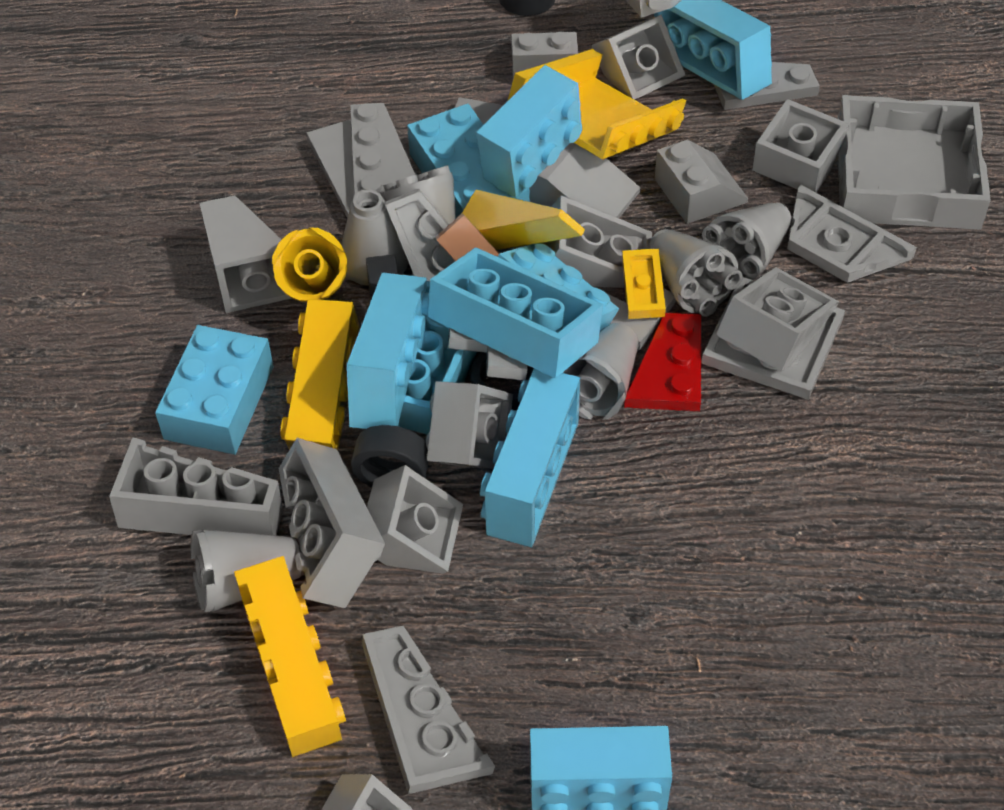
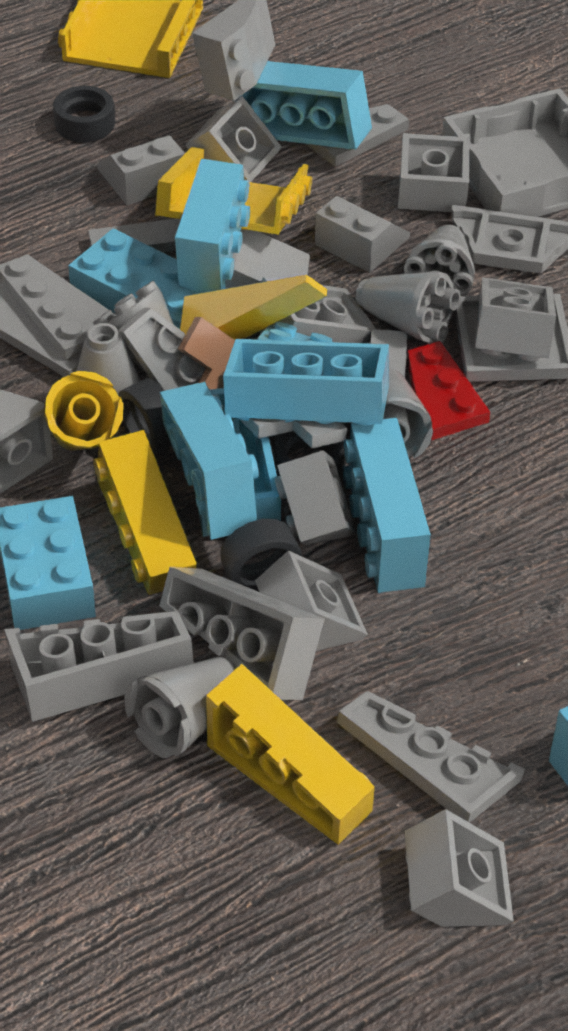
camera: 30 degrees left, 5 degrees down
(643, 283) = (378, 326): yellow plate -> none

